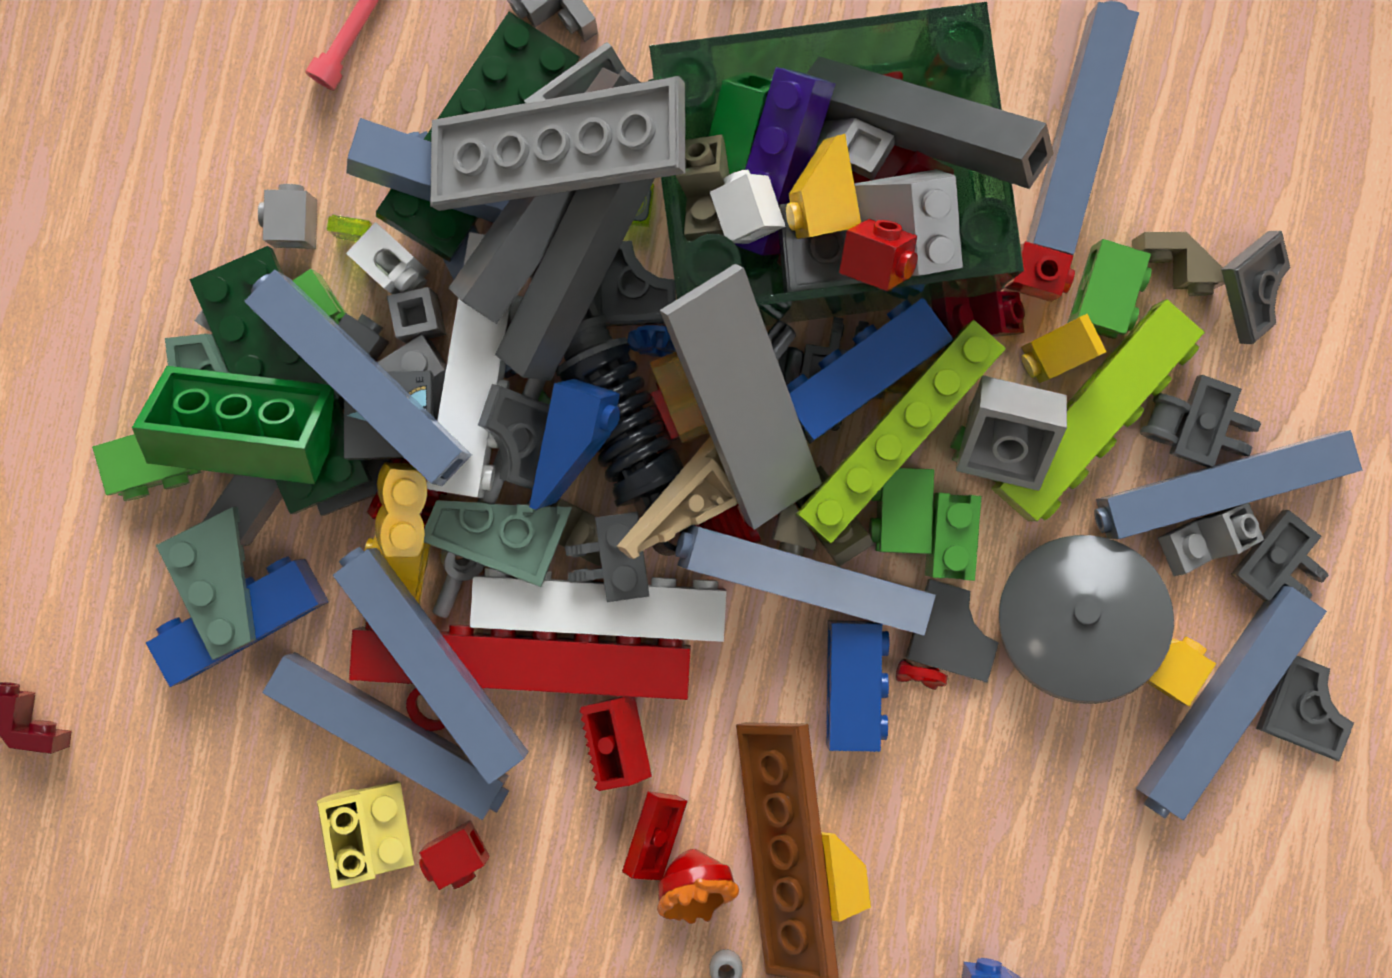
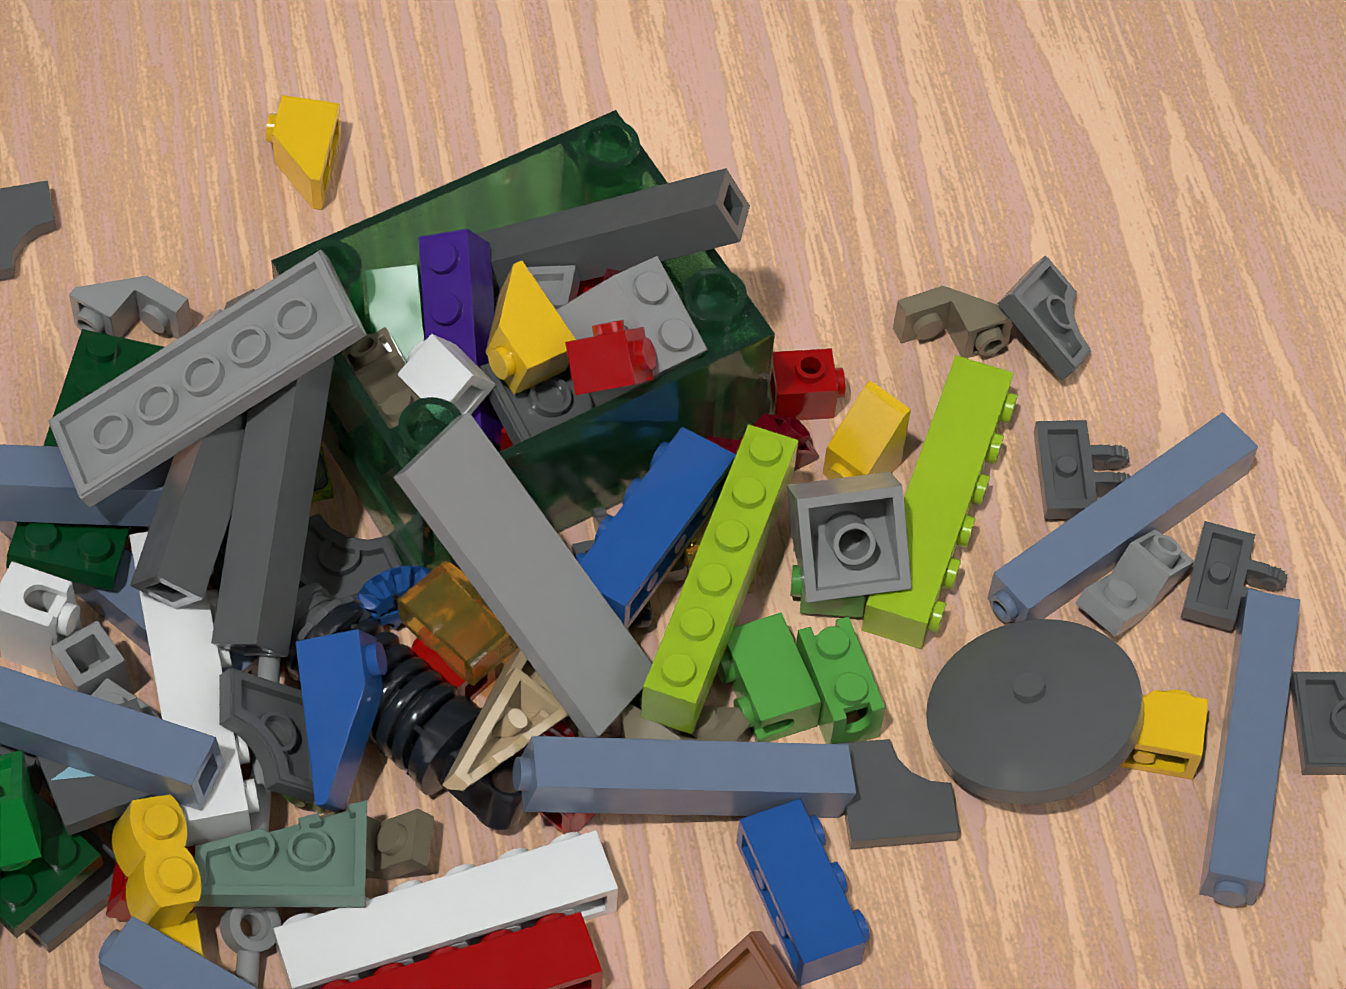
camera: 25 degrees left, 30 degrees down
(622, 575) = (451, 834): dark grey hinge -> none
(929, 677) = (888, 858): red piece -> none
(1083, 126) = (781, 229): sand blue brick -> none
(1111, 287) = (894, 360): bright green brick -> none
(1165, 419) = (1020, 482): dark grey bush -> none

